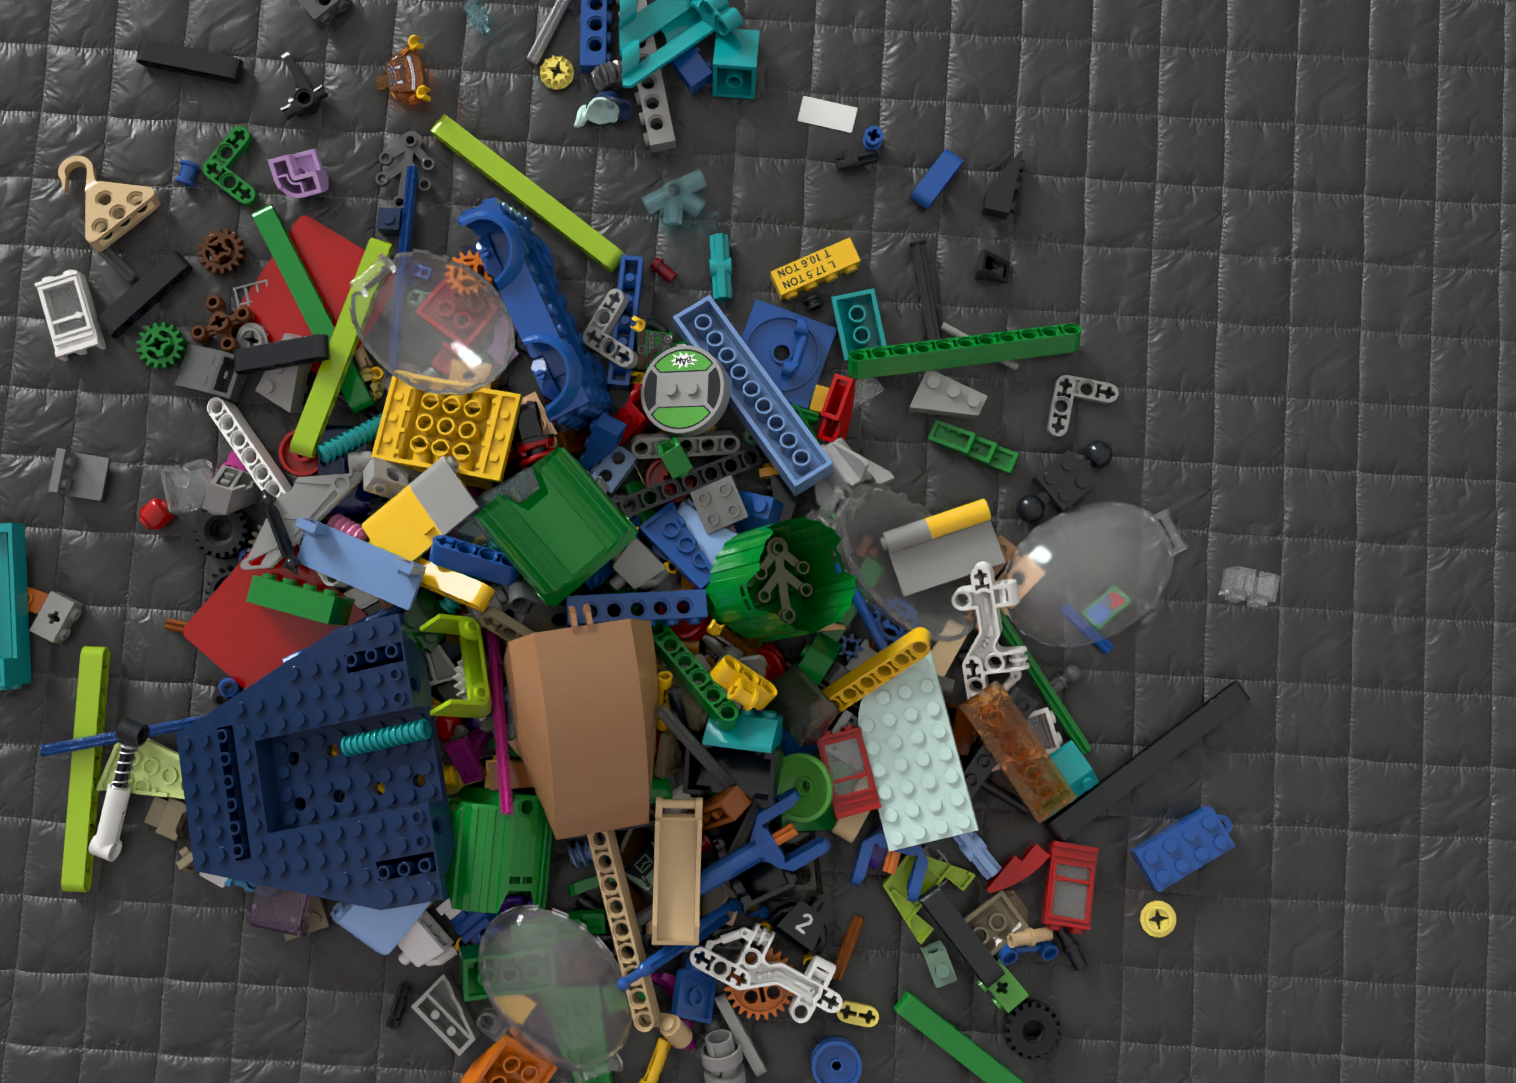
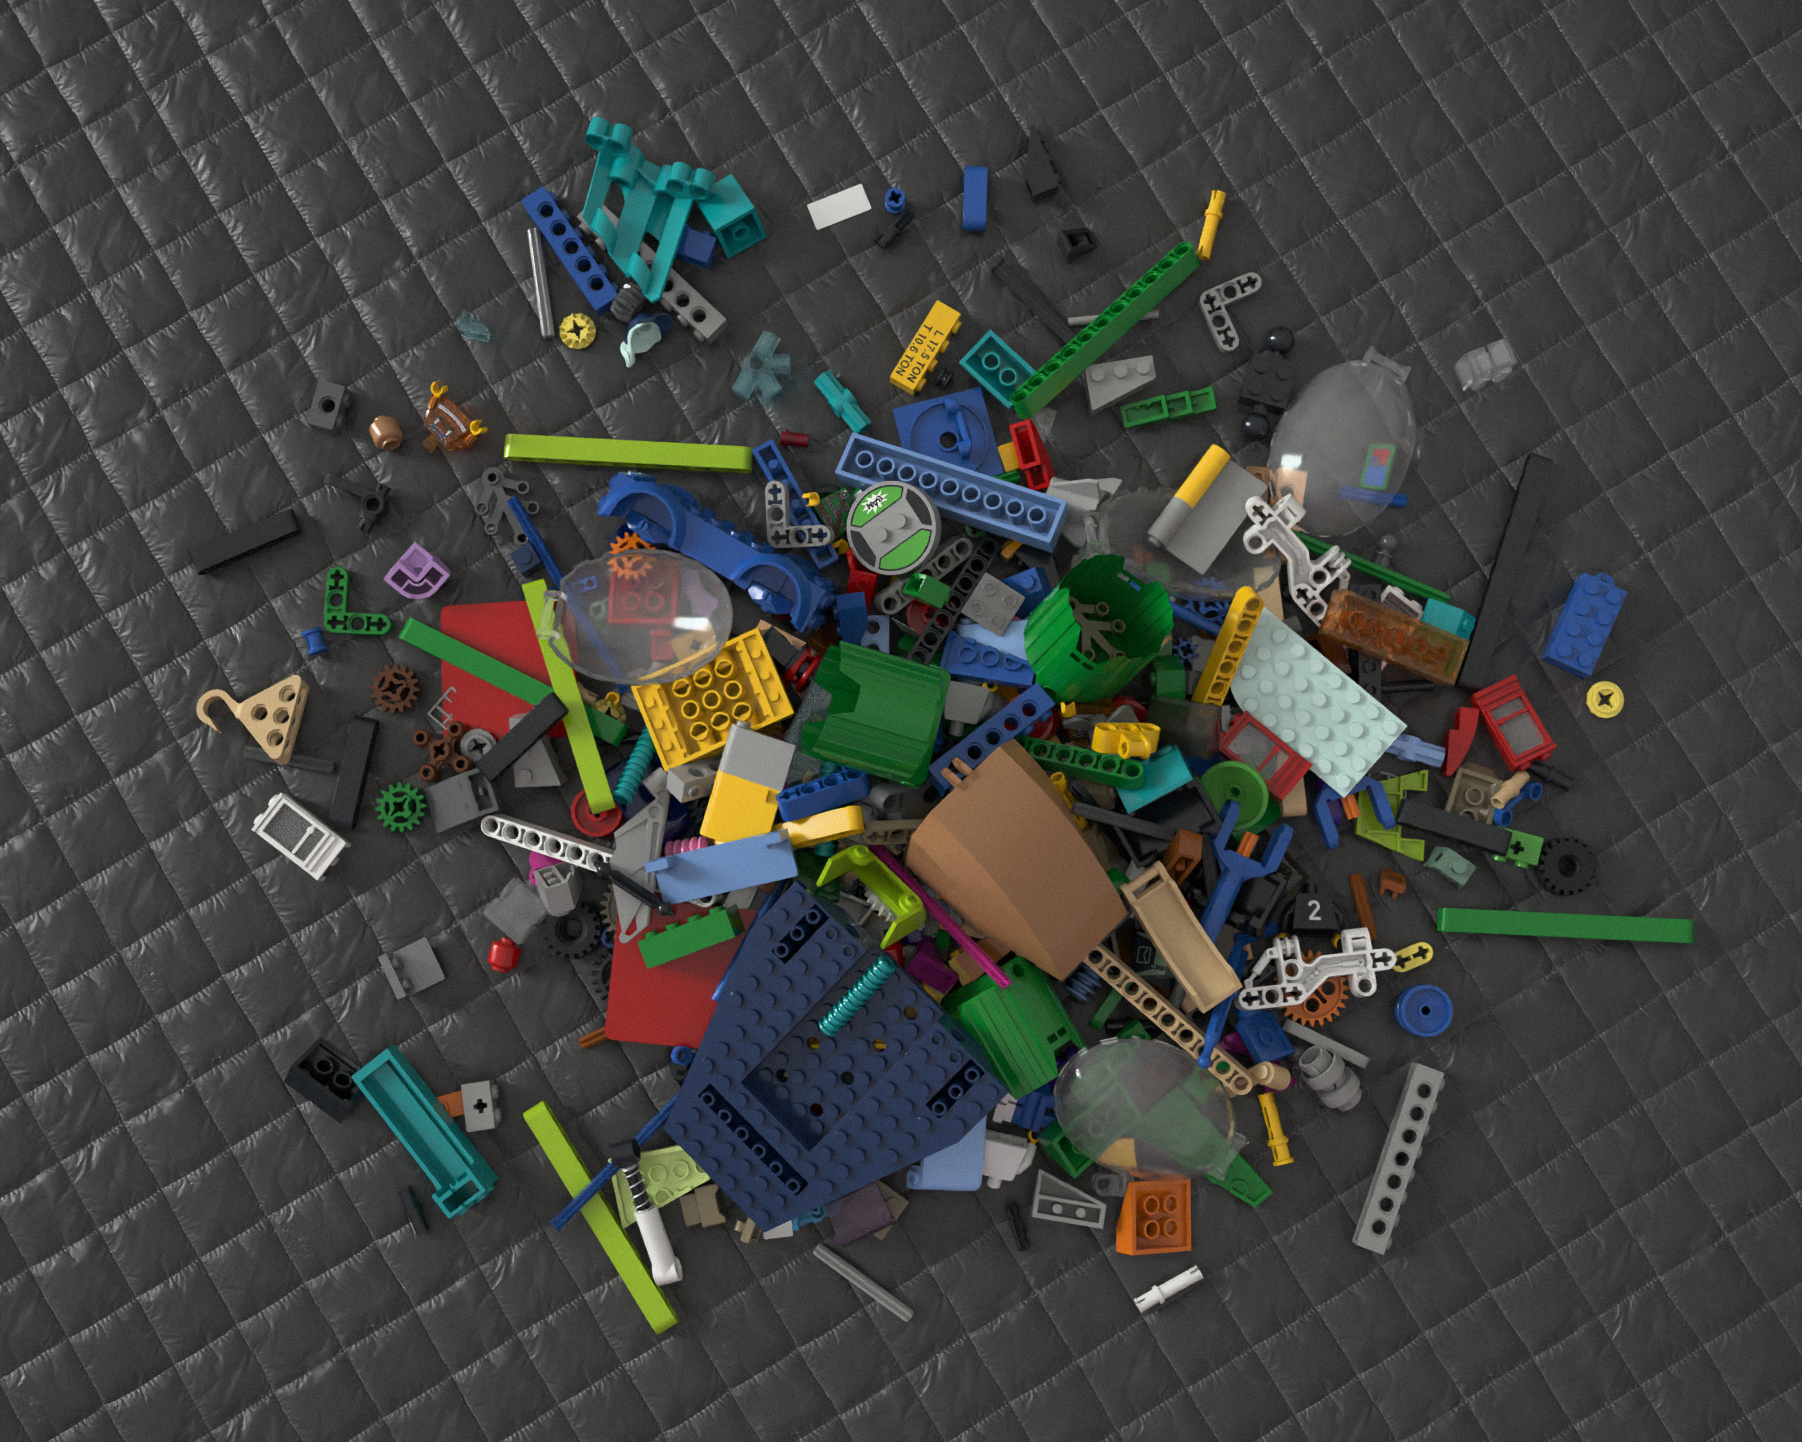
camera: 30 degrees left, 0 degrees up
(249, 963) = (863, 1282): none -> light grey axle
(354, 50) = (386, 433): none -> medium nougat head
(885, 944) = (1392, 881): none -> dark orange tile
(1113, 322) = (1213, 215): none -> yellow pin

